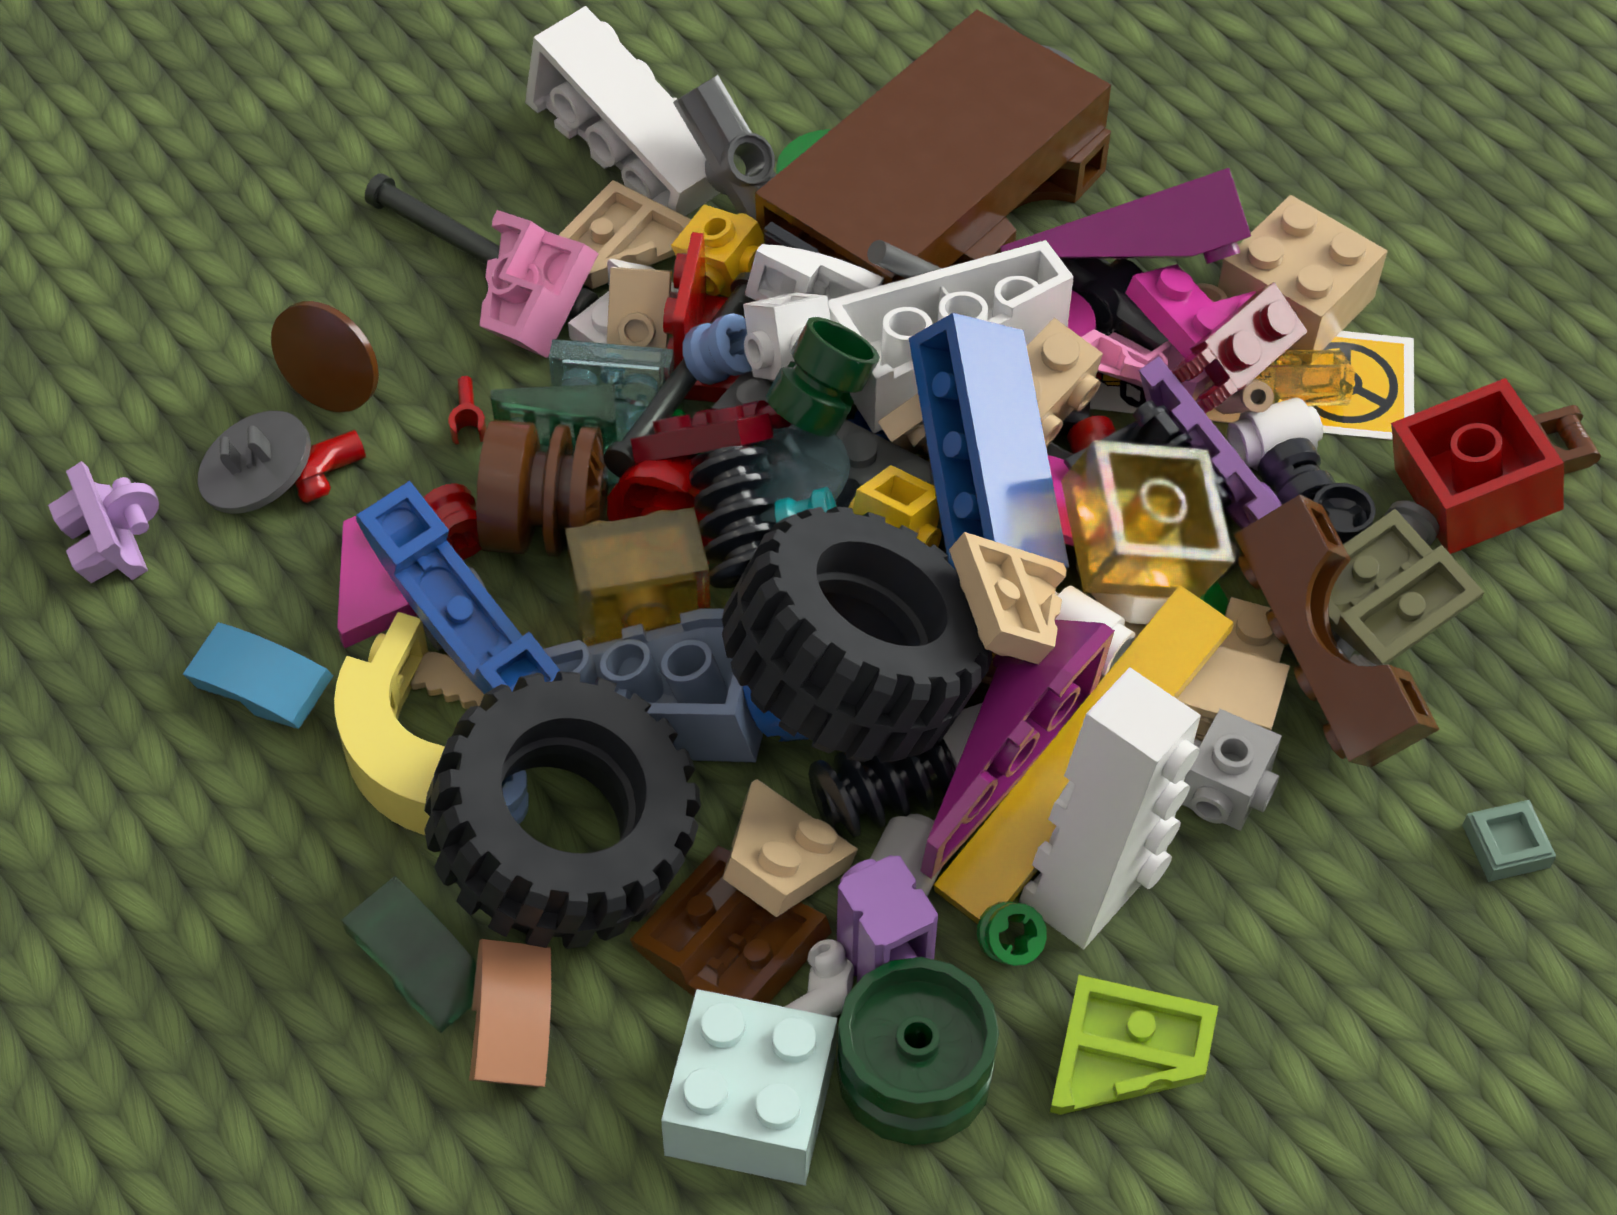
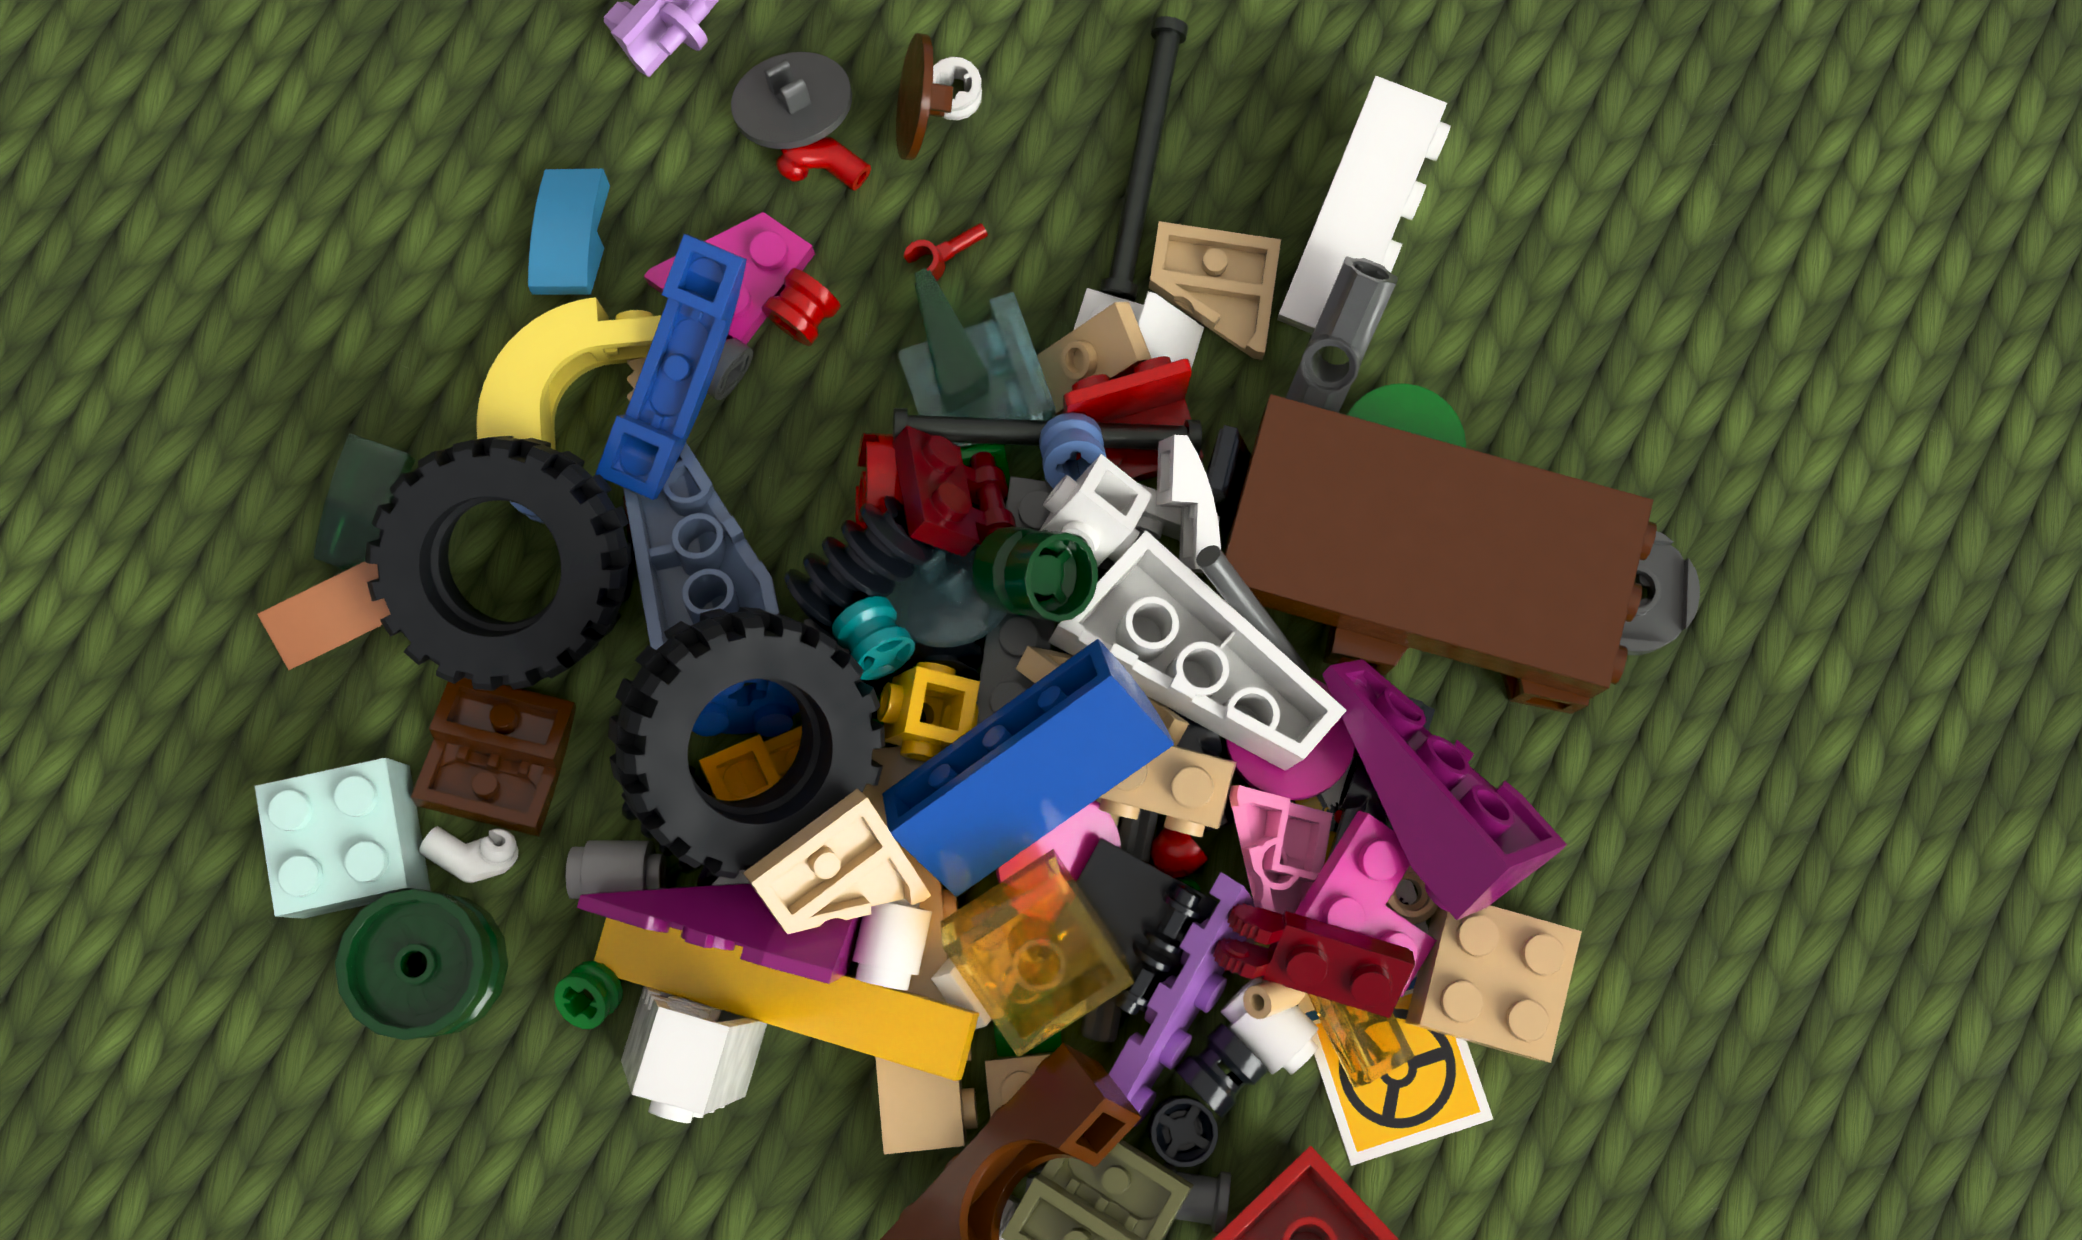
camera: 65 degrees right, 25 degrees up
(532, 283) = (1108, 232): bright pink slope -> none
(536, 488) = (848, 366): reddish brown wheel -> none
(637, 573) = (776, 496): clear yellow brick -> none
(729, 245) = (1231, 388): yellow brick -> none
(783, 852) = (563, 765): tan wing -> none
(883, 915) = (513, 888): medium lavender brick -> none
(1130, 1044) = (526, 1141): lime wing -> none
(1232, 771) = (855, 1121): light grey brick -> none

